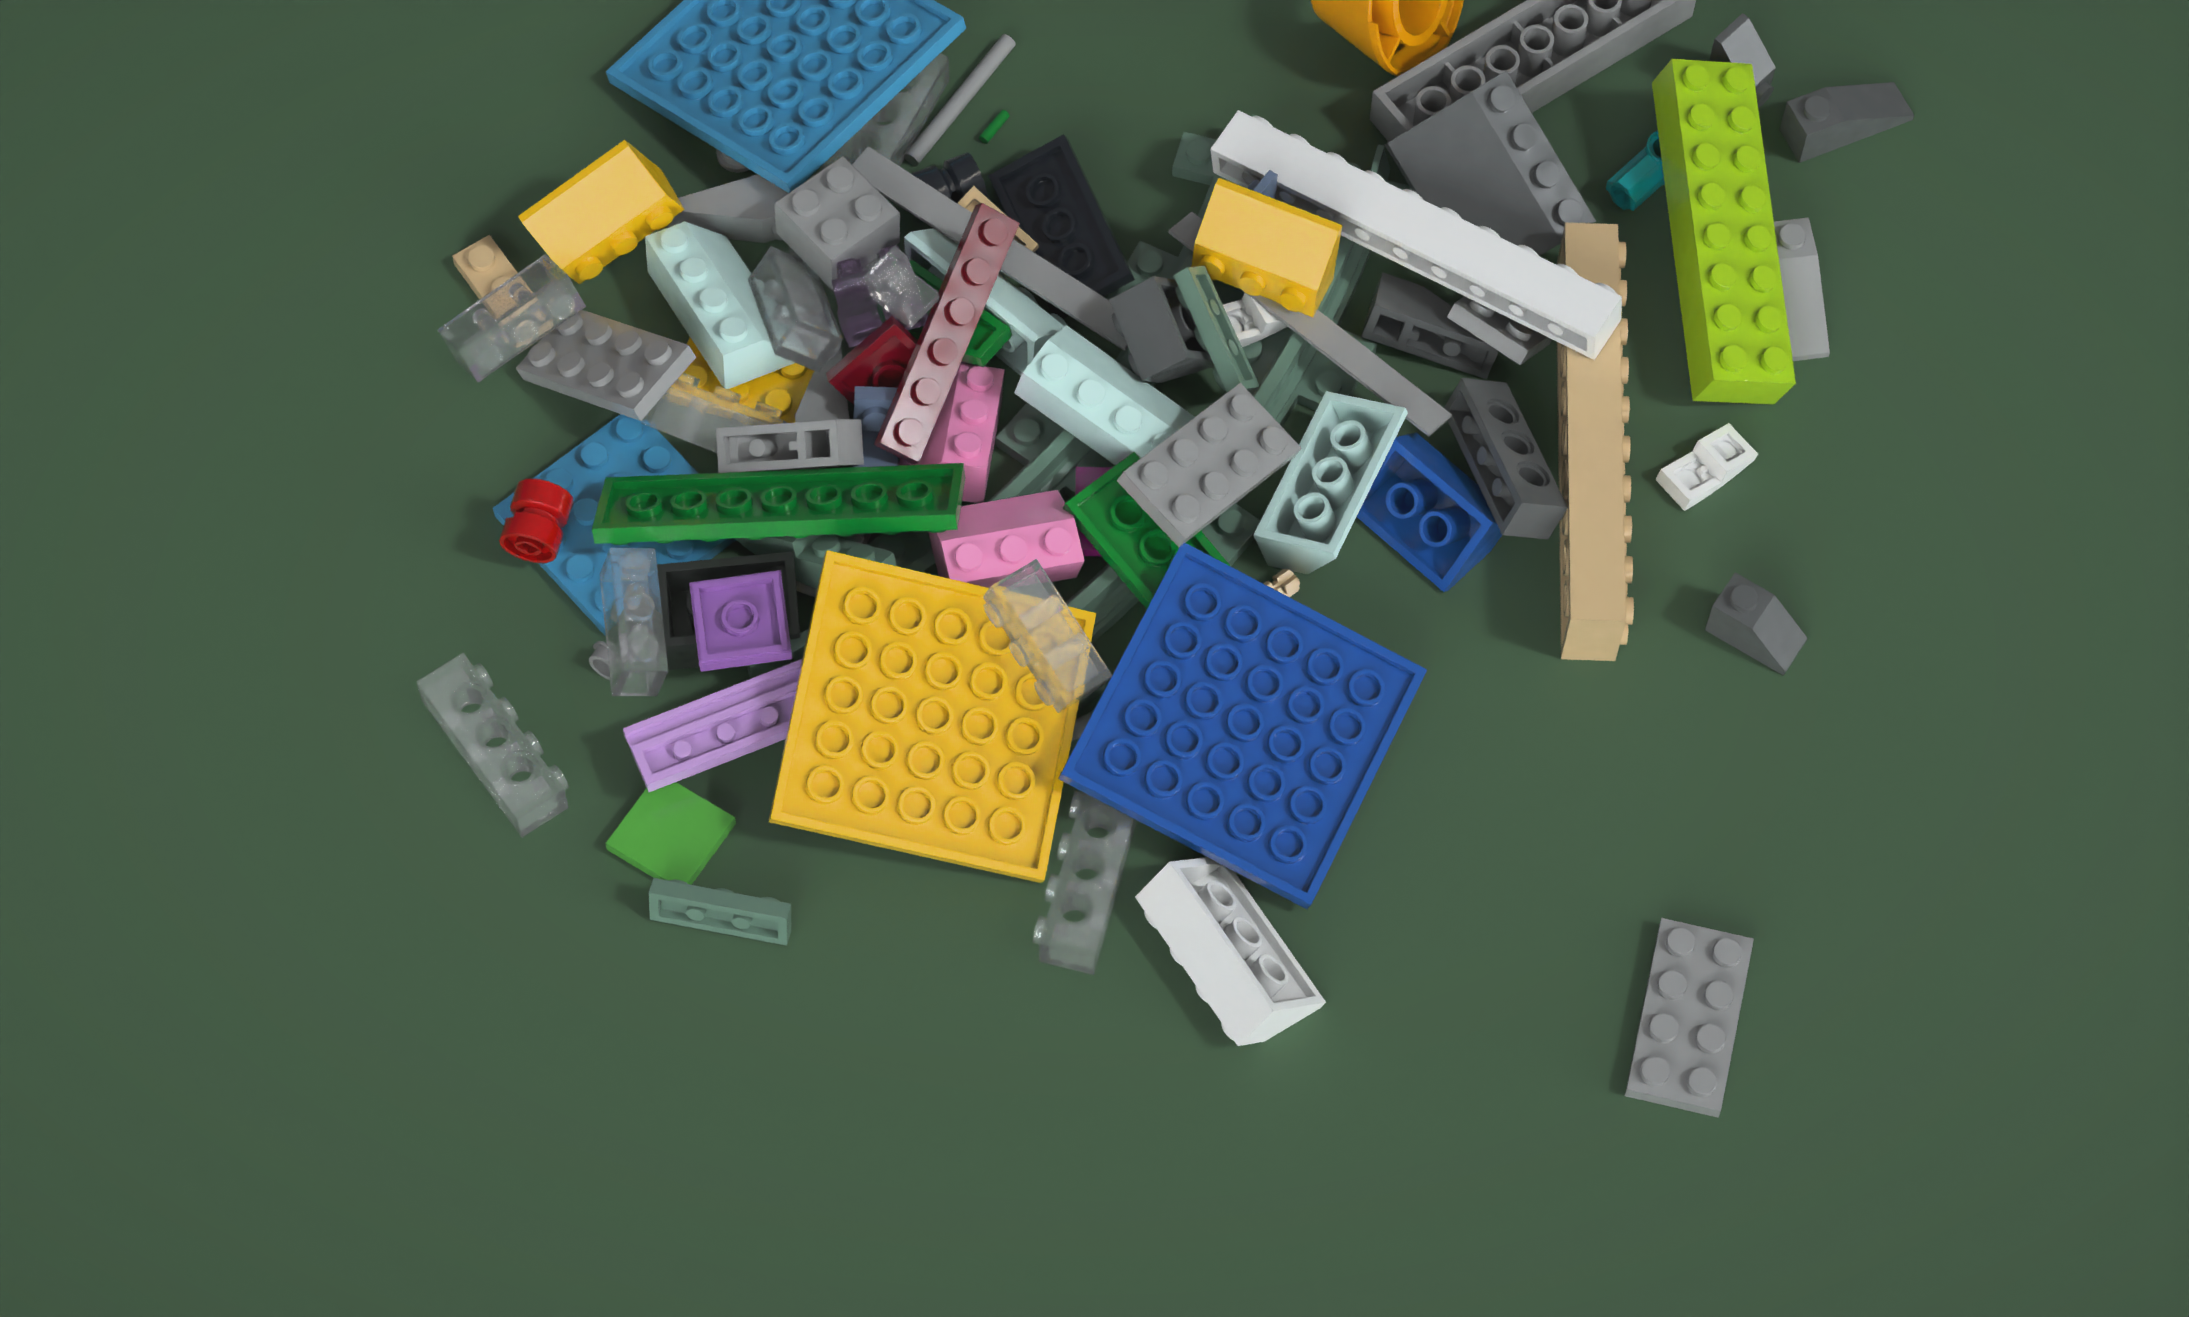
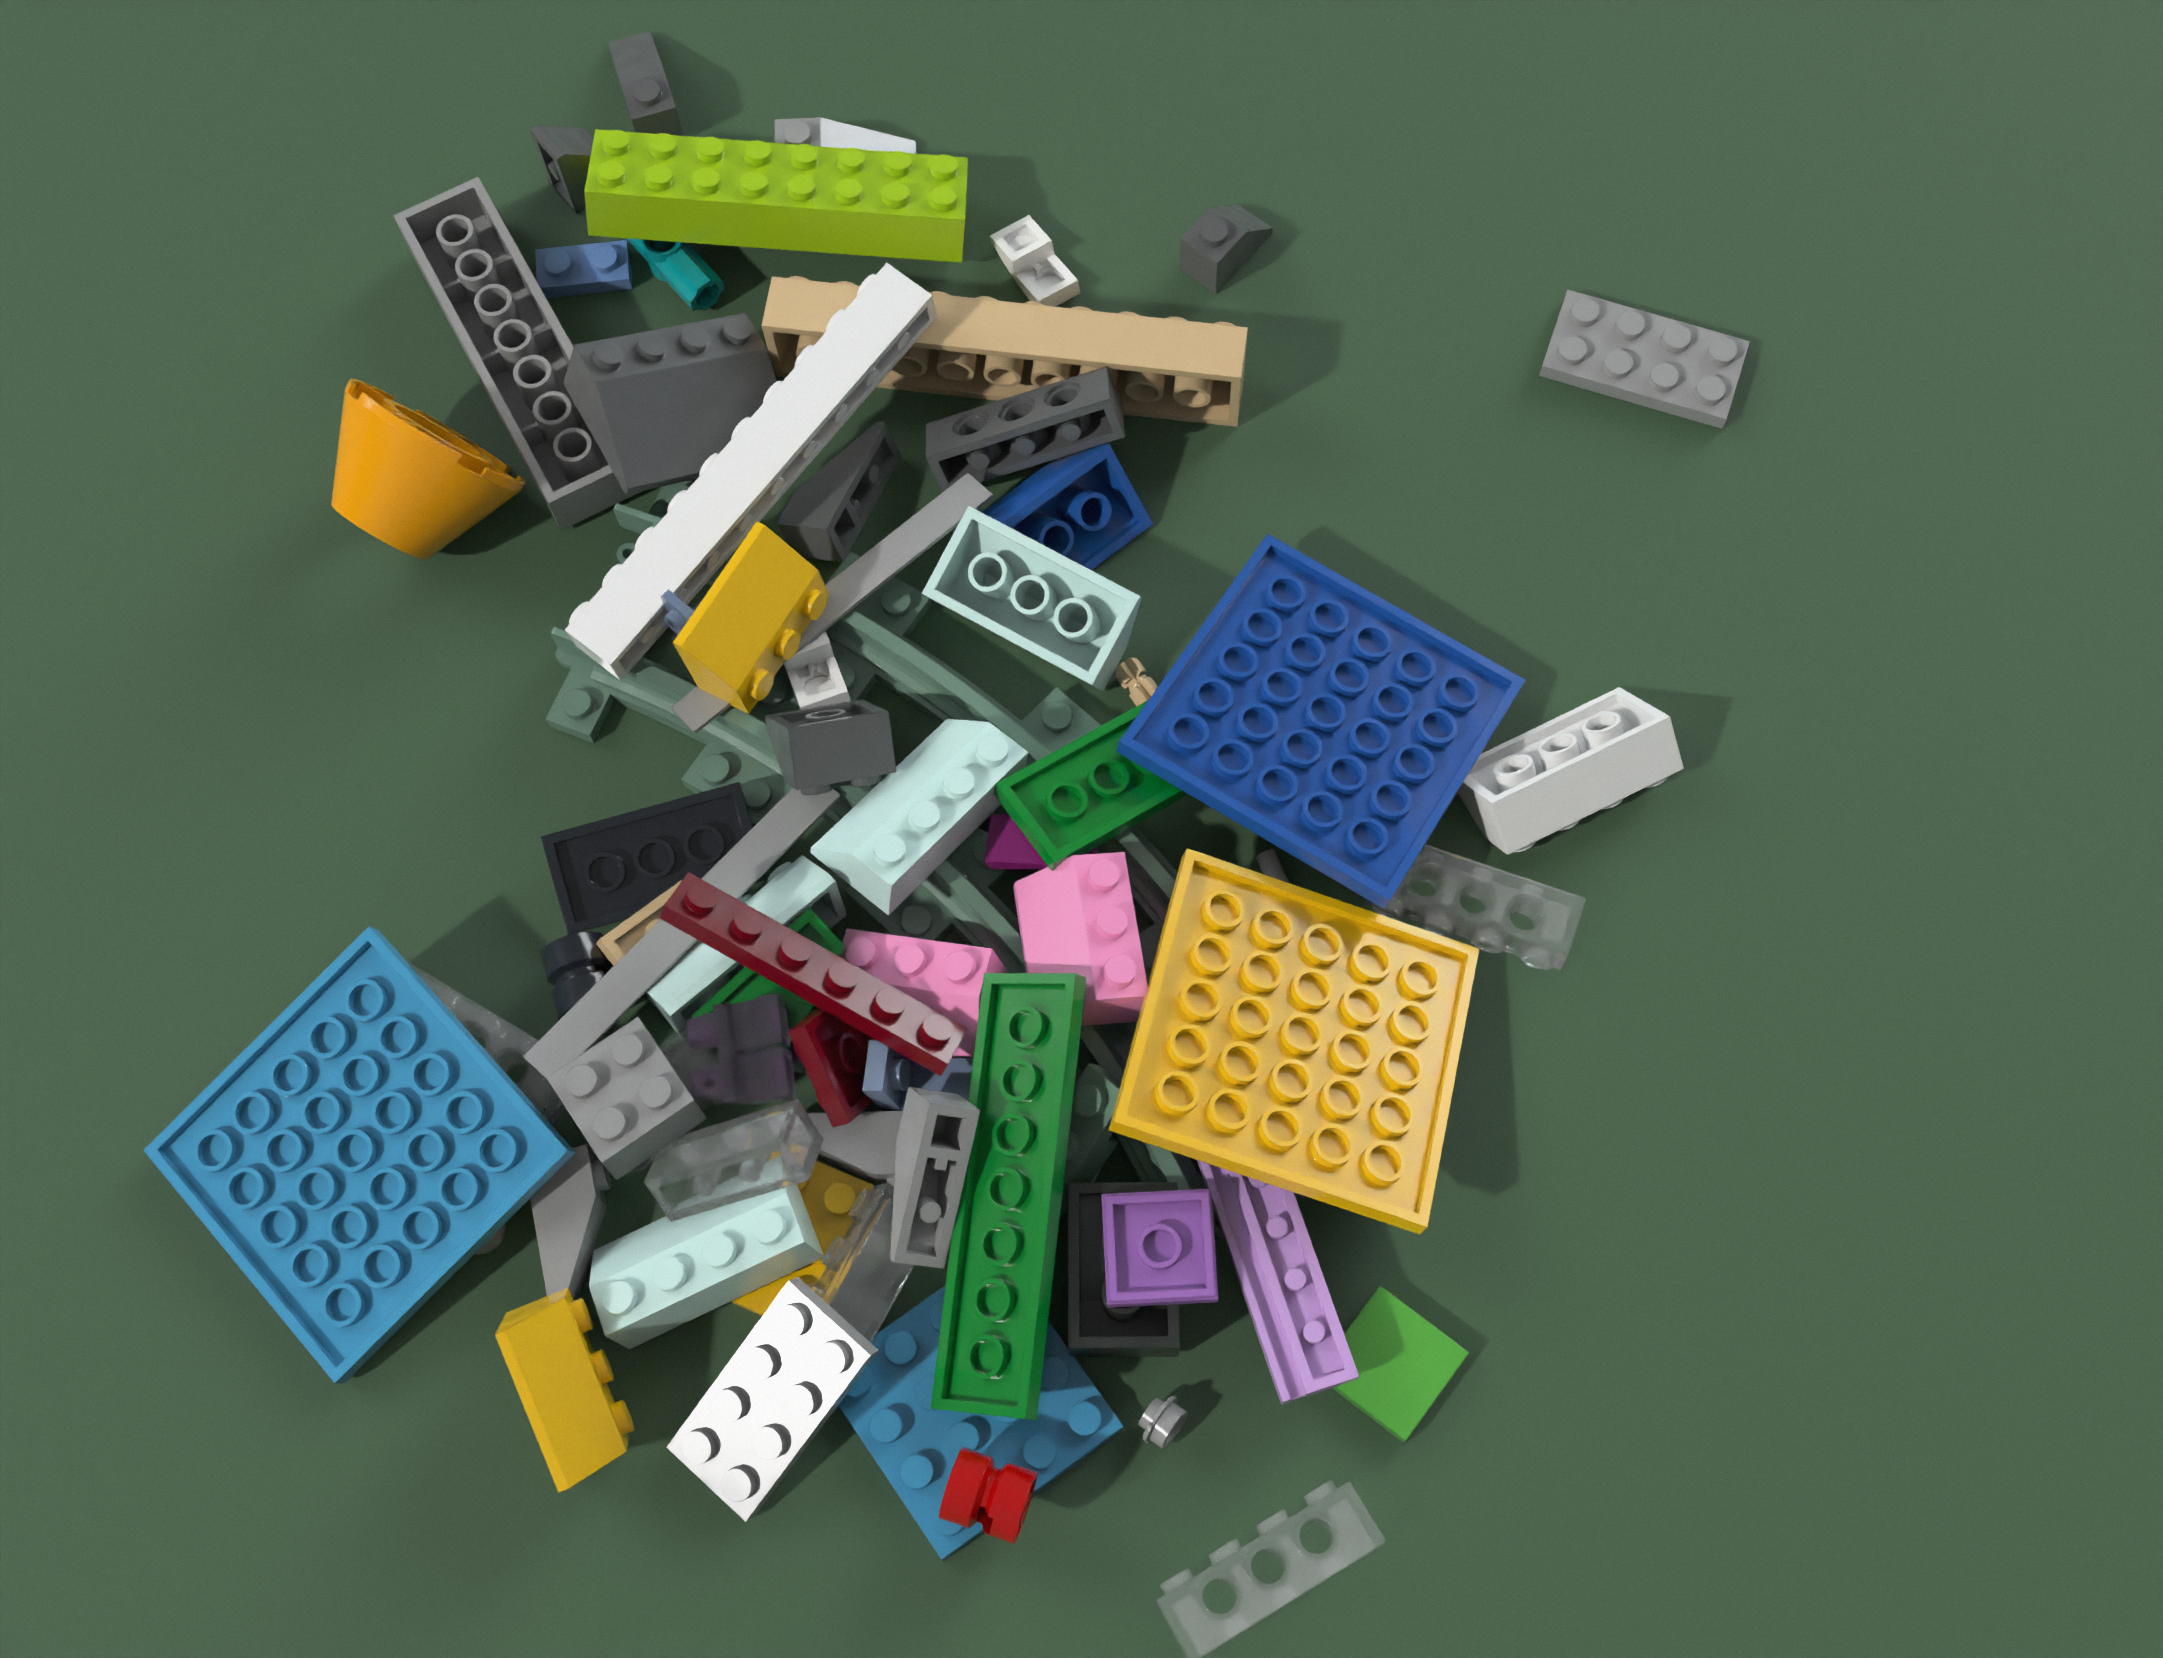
camera: 80 degrees left, 5 degrees up
(483, 266) = (610, 1545): tan plate -> none
(511, 318) = (685, 1518): clear brick -> none
(633, 622) = (1142, 1380): clear brick -> none
(720, 911) = (1499, 1308): sand green plate -> none
(899, 289) = (765, 1010): clear panel -> none
(959, 100) = (451, 962): light grey bar -> none
(994, 126) = (494, 928): green piece -> none
(1045, 636) = (1226, 896): clear brick -> none
(1209, 464) = (1023, 706): light grey plate -> none
(1214, 329) = (842, 690): sand green plate -> none
(1498, 331) = (868, 421): light grey plate -> none
(1634, 95) = (584, 269): none -> medium blue plate

